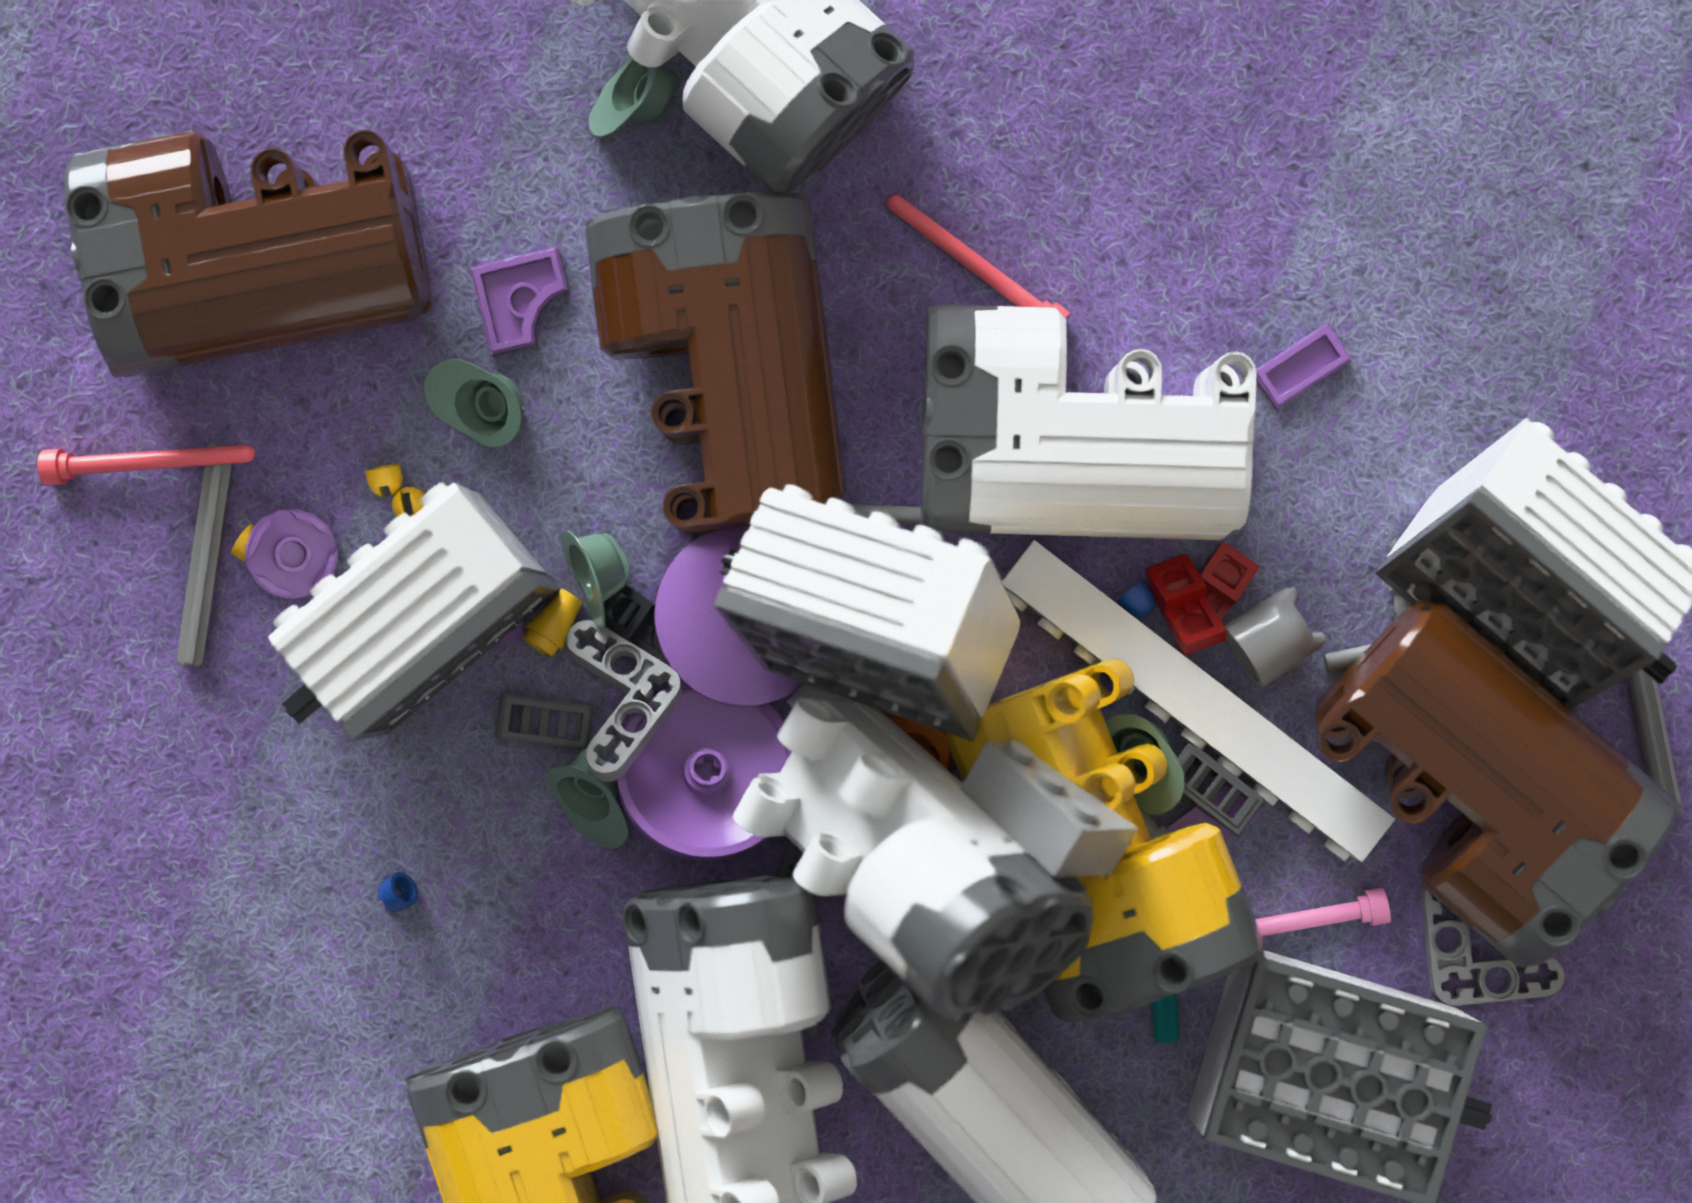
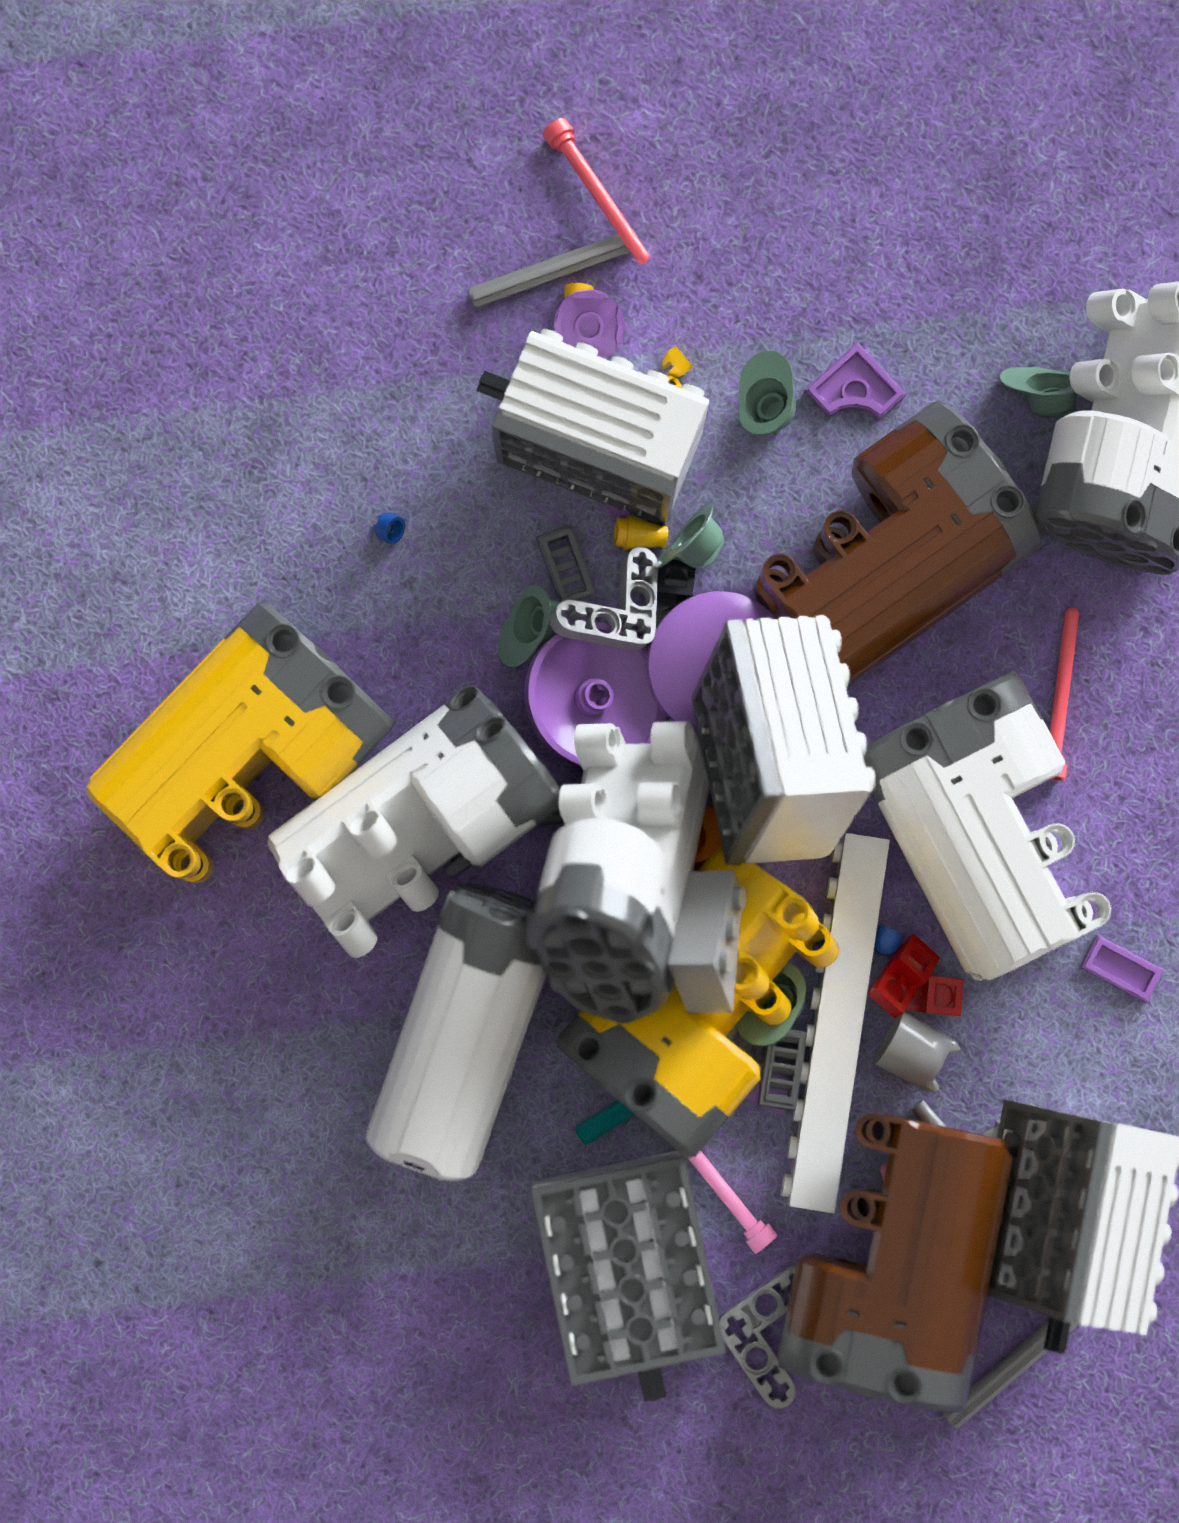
camera: 65 degrees right, 5 degrees down
(196, 279) = (751, 159): reddish brown piece -> none

